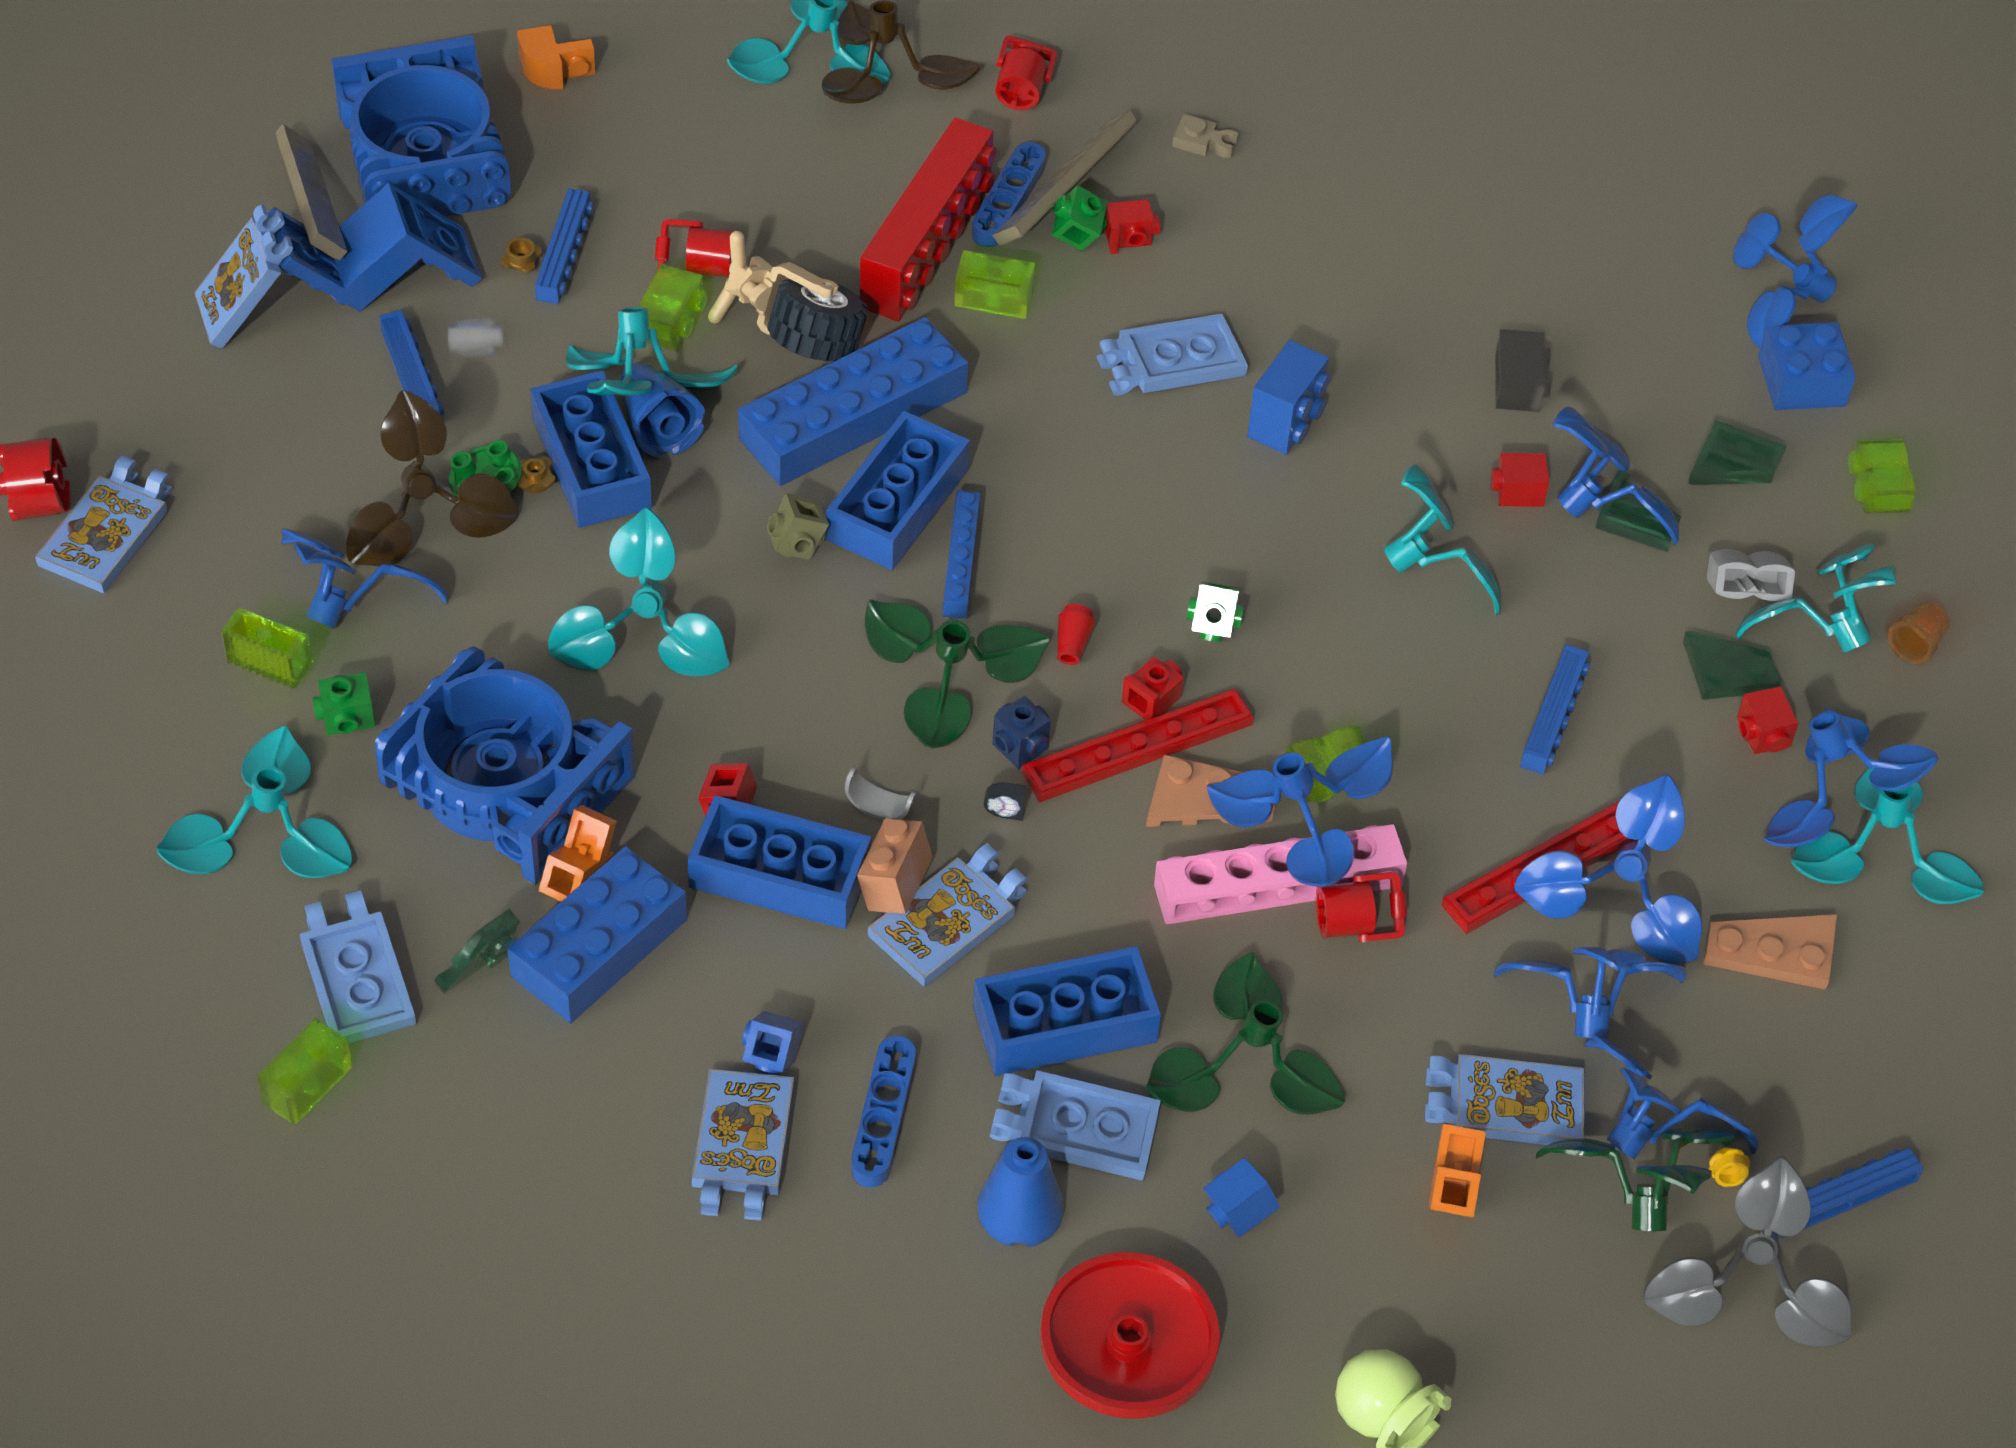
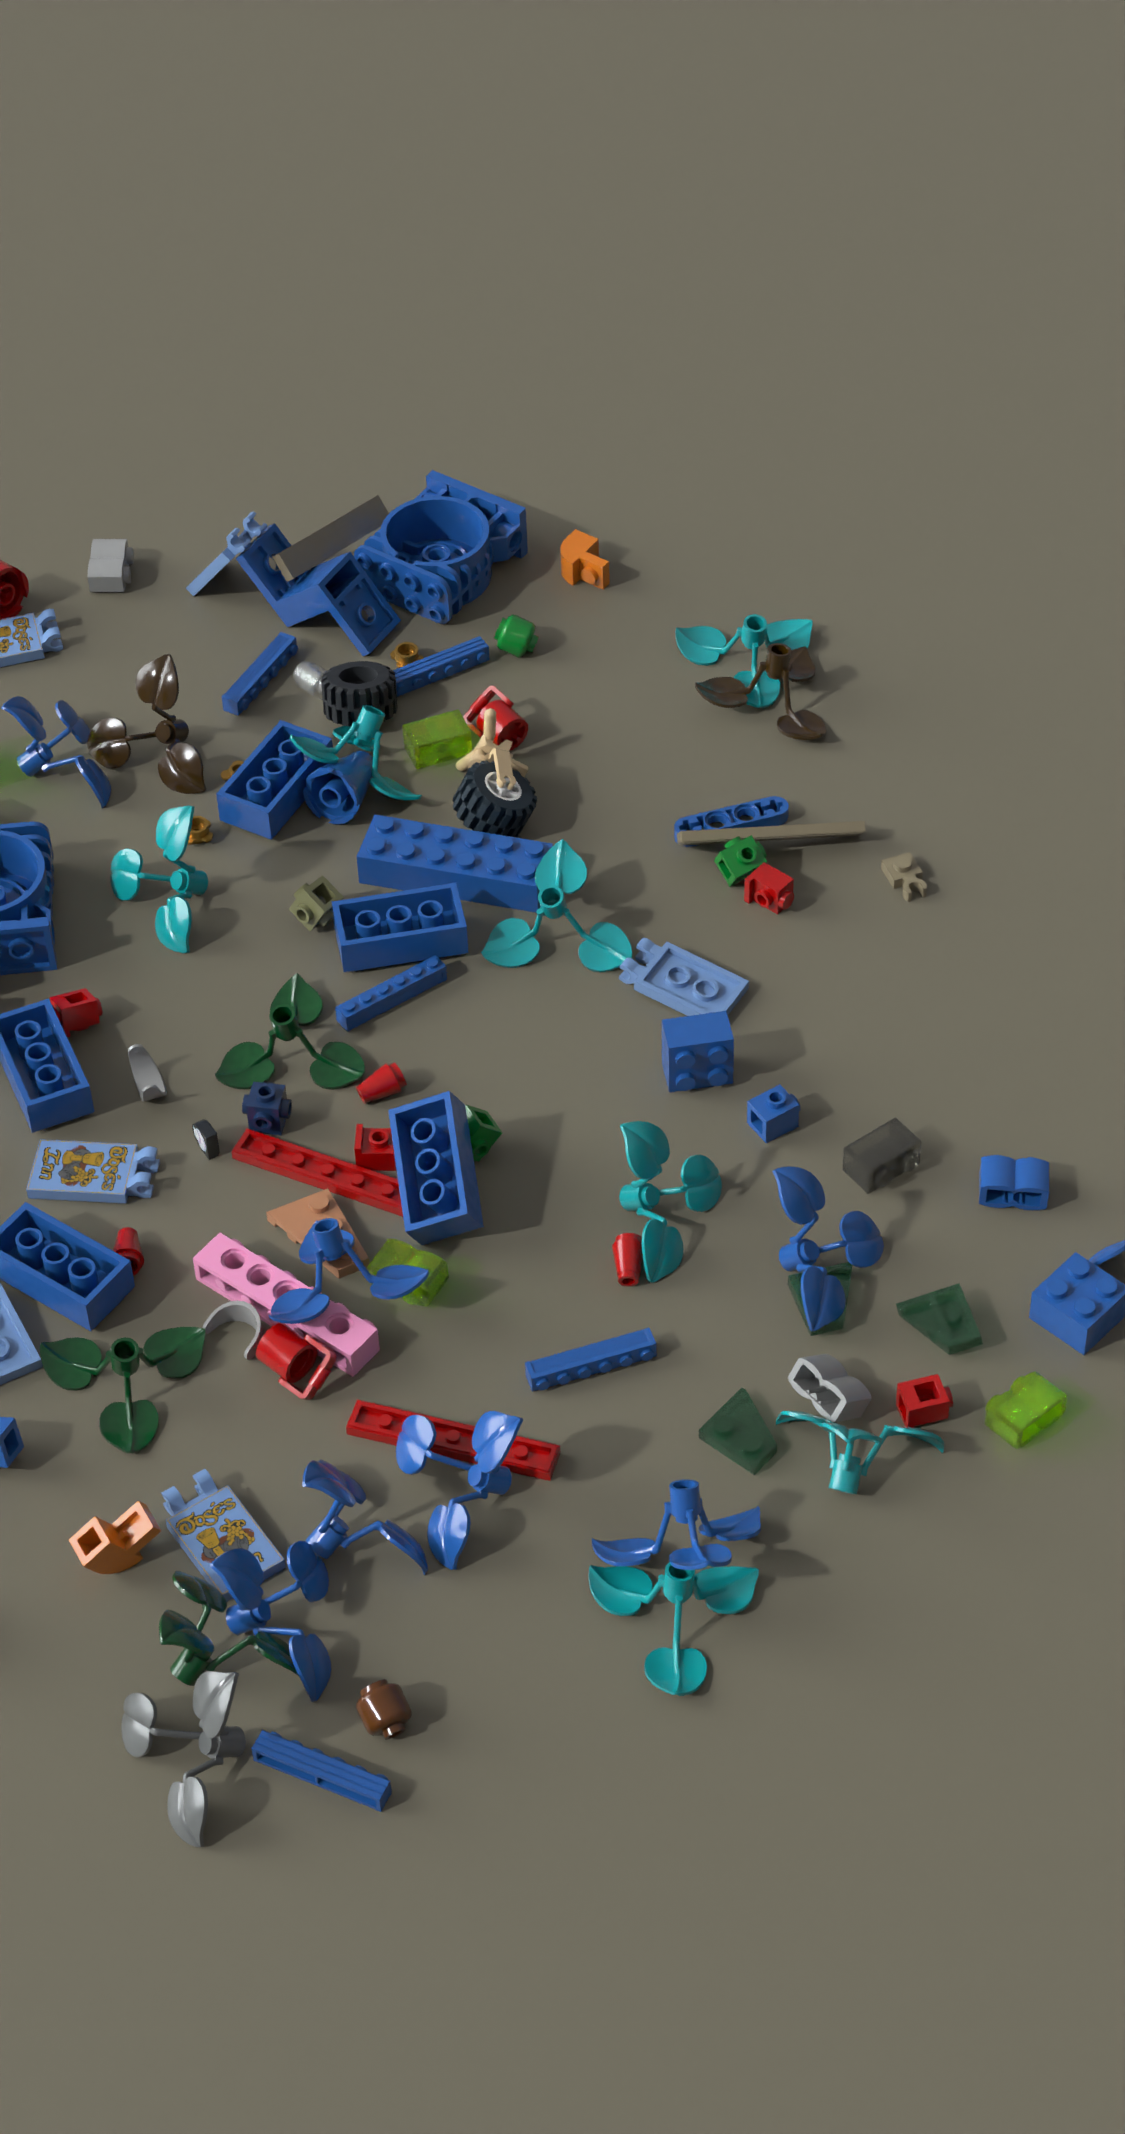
camera: 55 degrees right, 5 degrees down
(105, 375) = (110, 565): none -> light grey brick
(492, 459) = (218, 752): green dish -> none
(549, 316) = (358, 684): none -> black tyre
(575, 552) = (200, 831): none -> pearl gold plate
(597, 165) = (516, 636): none -> green head
(895, 866) = (90, 1116): nougat brick -> none
(927, 219) = (643, 792): red brick -> none
(994, 284) = (634, 861): clear neon green brick -> none
(1023, 72) = (839, 755): red piece -> none
(1073, 377) = (559, 872): none -> teal plant
(1081, 944) = (128, 1246): none -> red cone
(1253, 655) = (435, 1168): none -> blue brick
(1272, 909) = (241, 1312): none -> light grey helmet
(1399, 403) = (773, 1113): none -> blue brick
(1466, 606) = (628, 1258): none -> red cone
(1520, 479) = (772, 1220): red brick -> none
(1633, 313) = (1014, 1182): none -> blue brick
(1729, 1166) = (277, 1689): yellow plate -> none
(1767, 720) = (712, 1472): red brick -> none
(1775, 948) = (507, 1608): nougat wing -> none
(1815, 531) = (923, 1400): none -> red brick
(1824, 1102) = (383, 1709): none -> reddish brown head
(1918, 633) = (892, 1516): clear orange piece -> none

